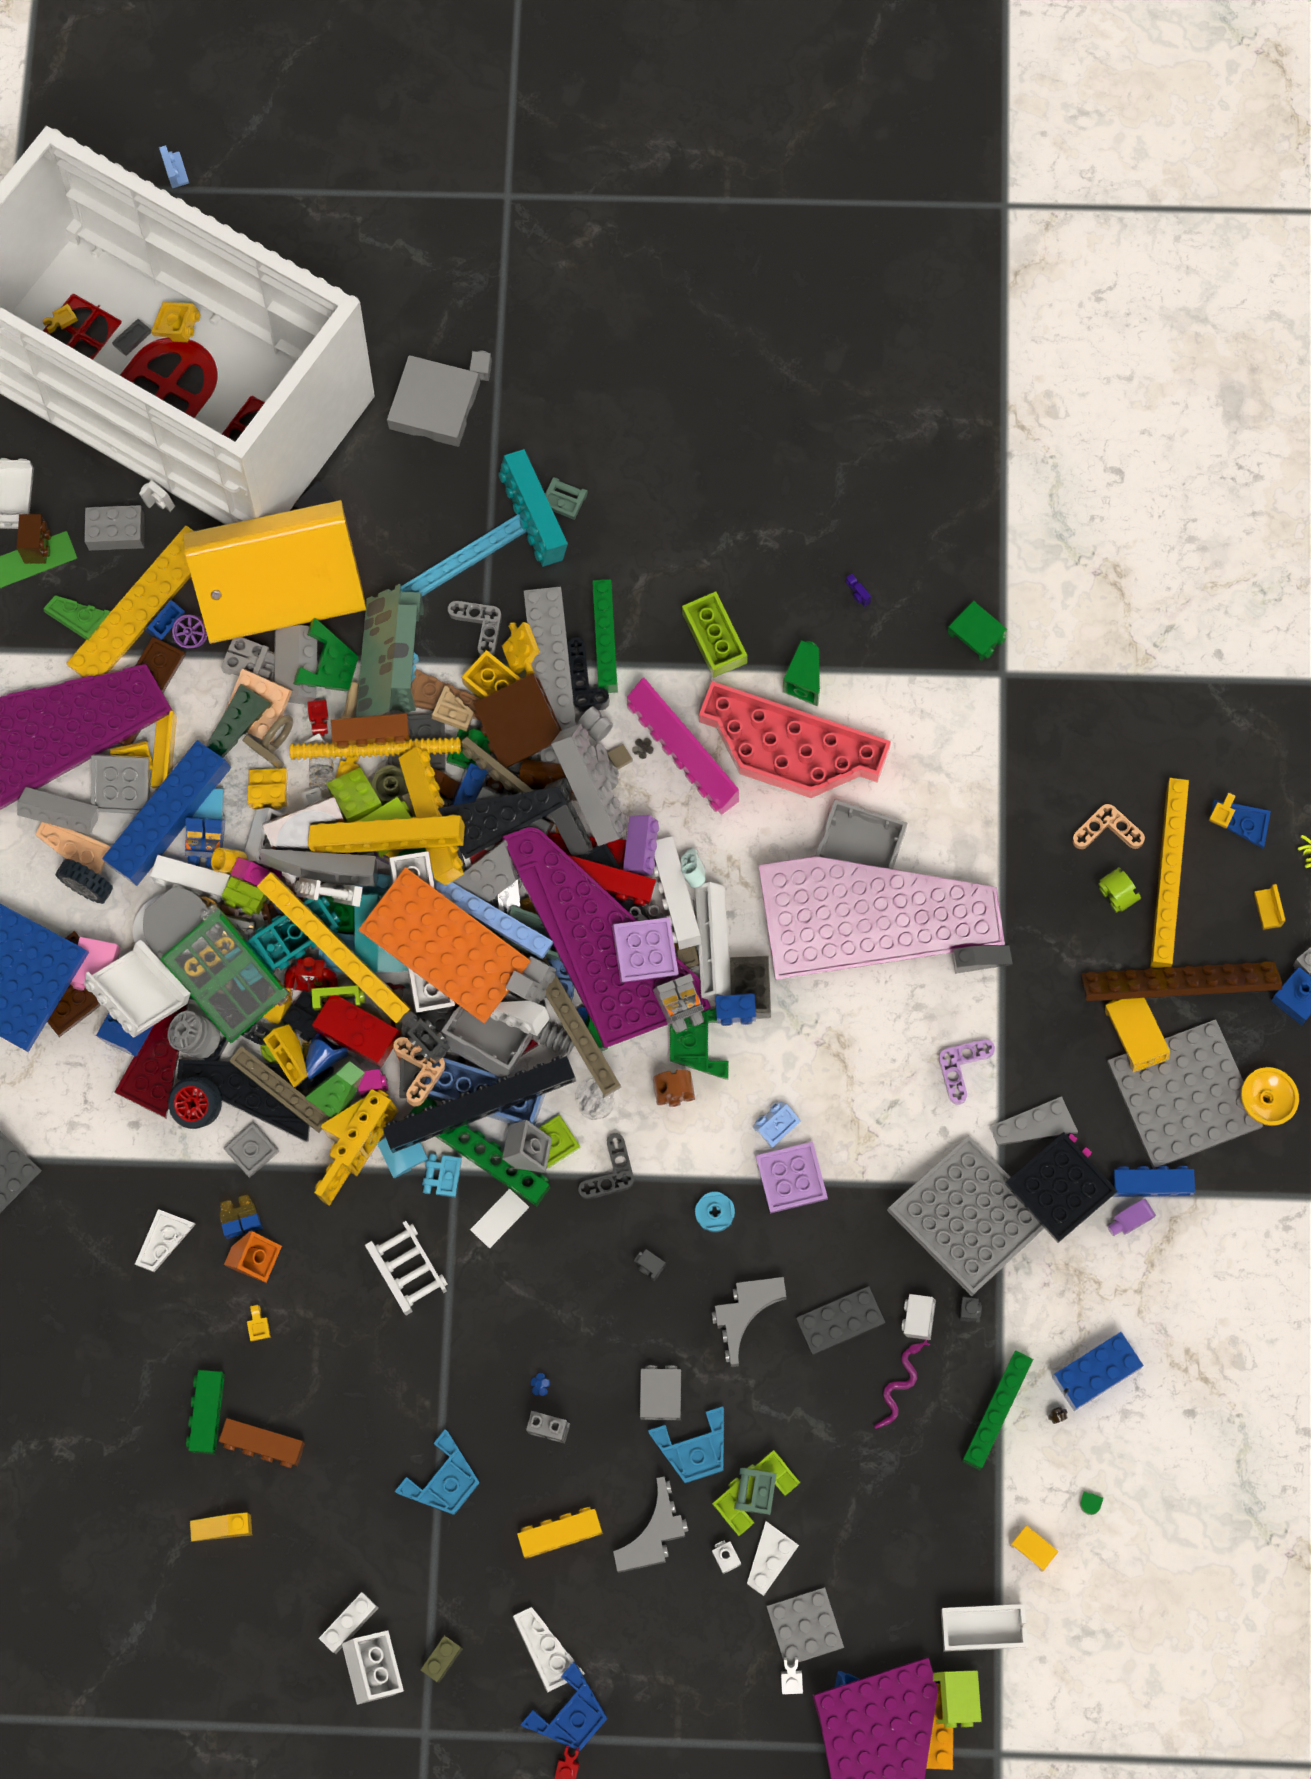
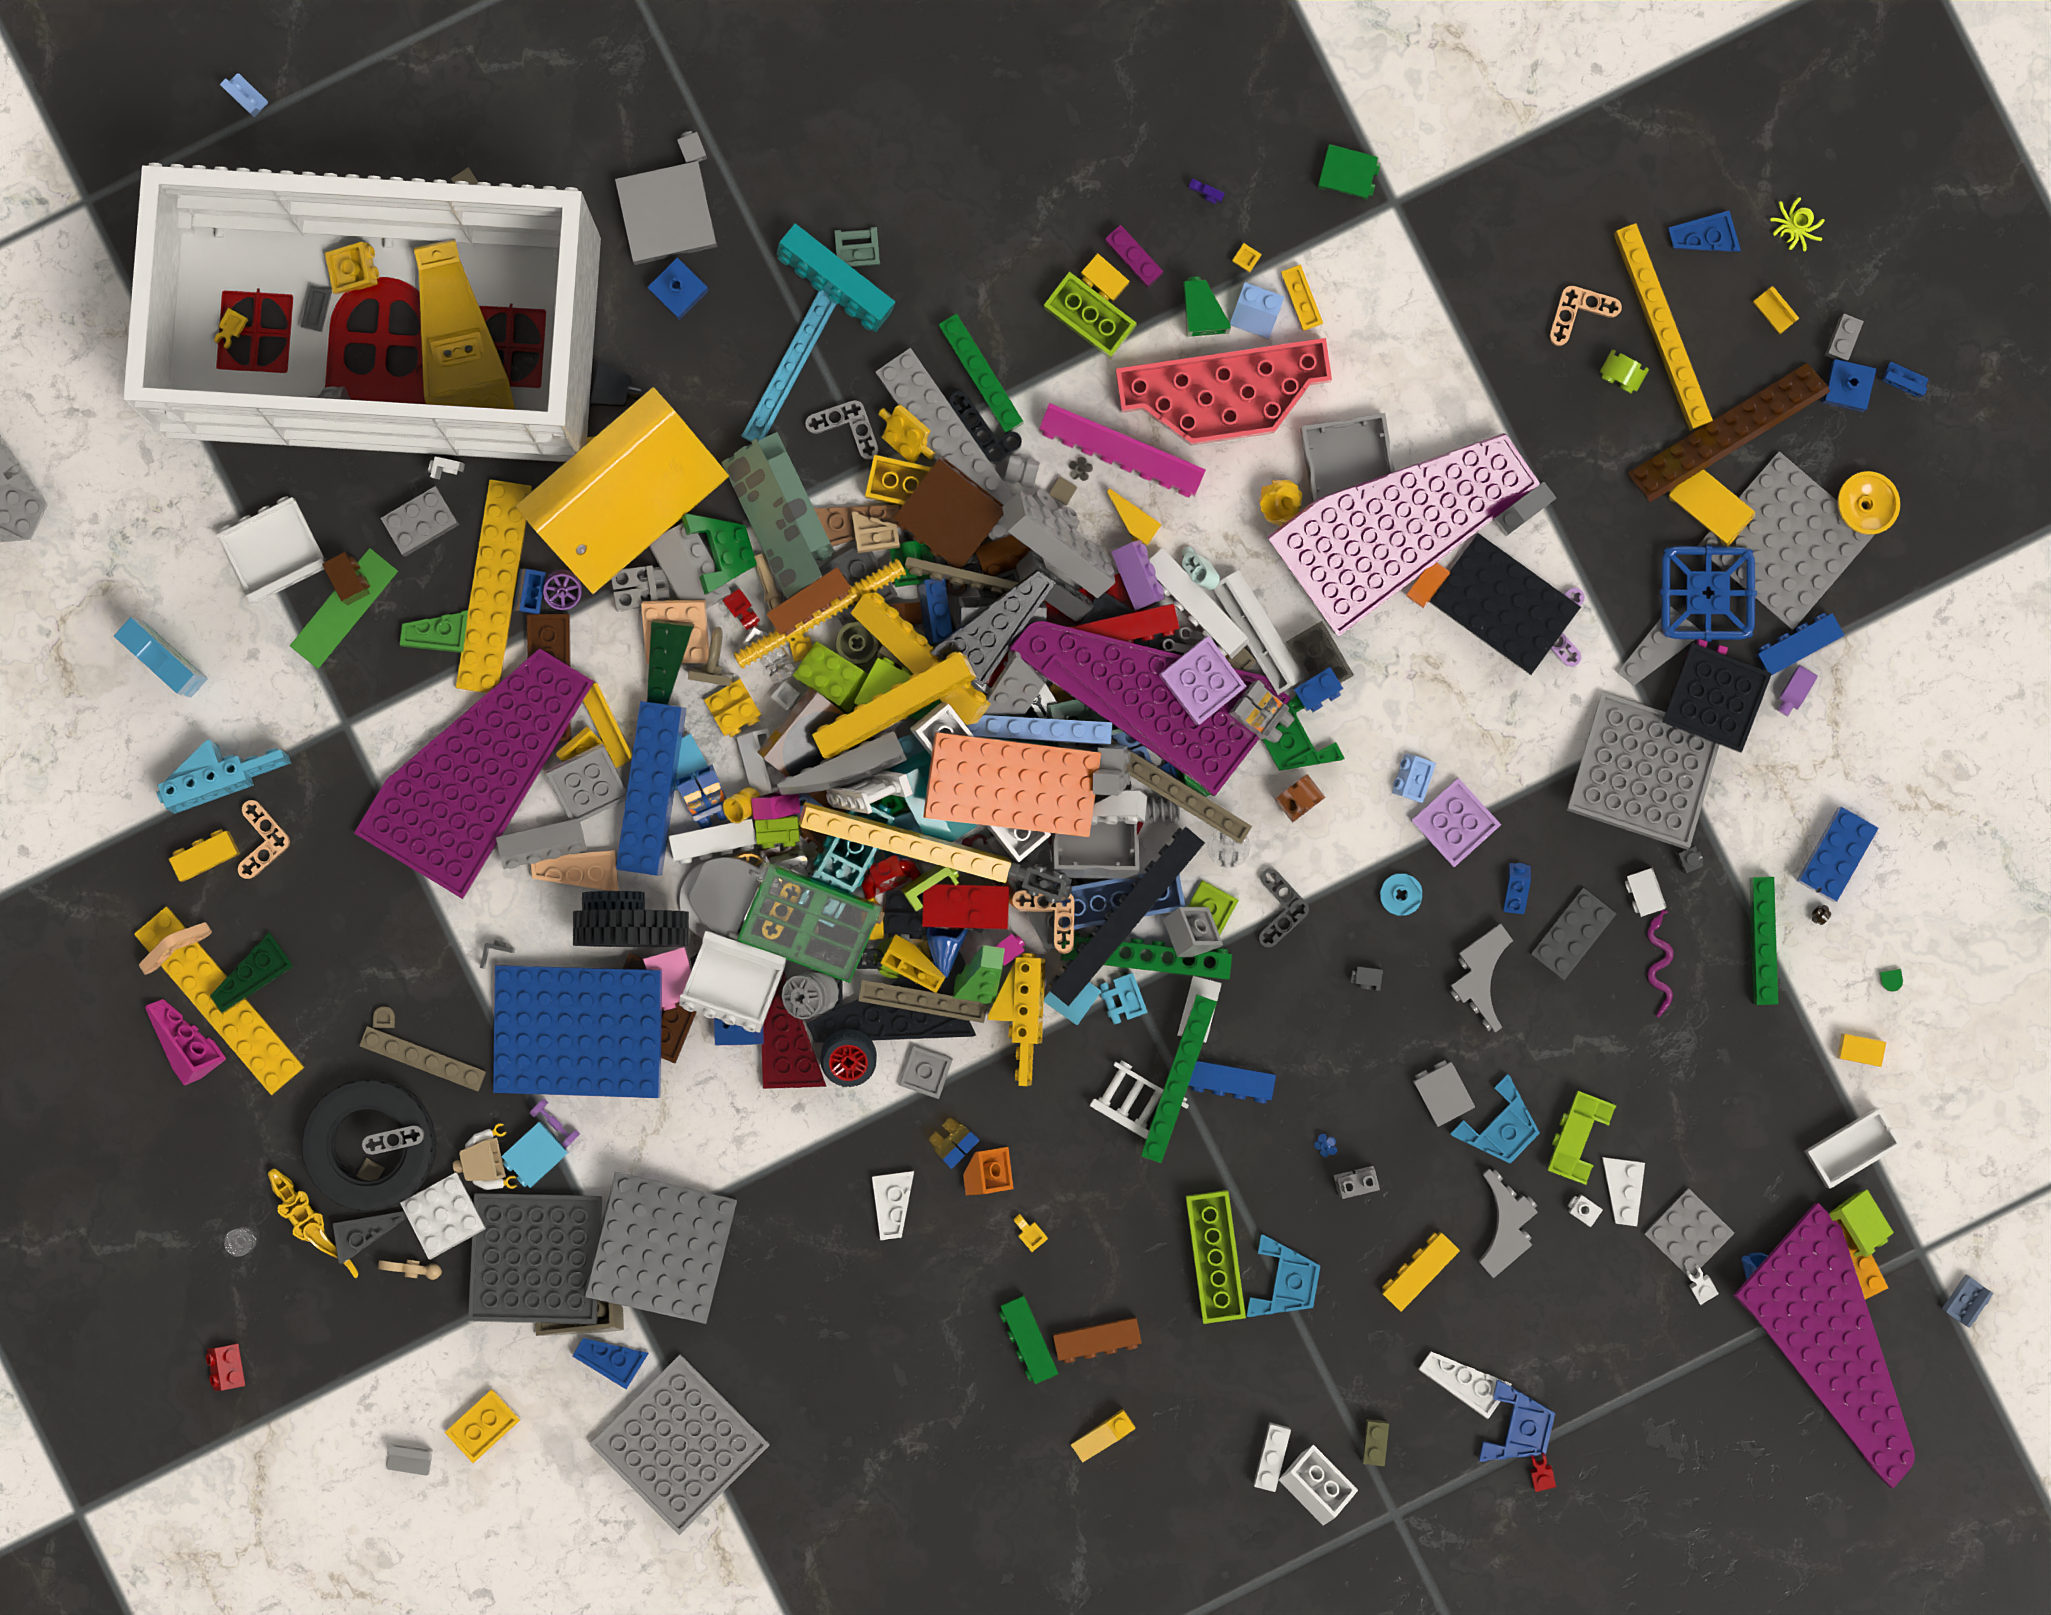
camera: 35 degrees left, 15 degrees up
(82, 902) = (630, 928): none -> black tyre
(228, 385) = (451, 322): none -> yellow wing
(396, 1426) = (1215, 1256): none -> lime brick
(410, 459) = (678, 288): none -> blue brick
(447, 1259) = (1178, 1078): none -> green brick
(492, 1288) = (1232, 1080): none -> blue brick
(663, 806) = (1136, 521): none -> yellow slope
(742, 614) = (1104, 278): none -> yellow brick
(762, 1491) = (1589, 1135): sand green plate -> none
(773, 609) = (1133, 256): none -> magenta brick
(786, 846) = (1280, 501): none -> yellow hair
(813, 1257) = (1518, 888): none -> blue bracket
(848, 697) = (1256, 310): none -> light blue slope
(862, 655) = (1246, 258): none -> yellow plate
(869, 976) = (1428, 584): none -> orange slope
(889, 706) = (1301, 297): none -> yellow plate
(925, 1024) = (1504, 604): none -> black plate
(1103, 1111) = (1718, 582): none -> blue plate
(1223, 813) = (1685, 239): yellow plate -> none

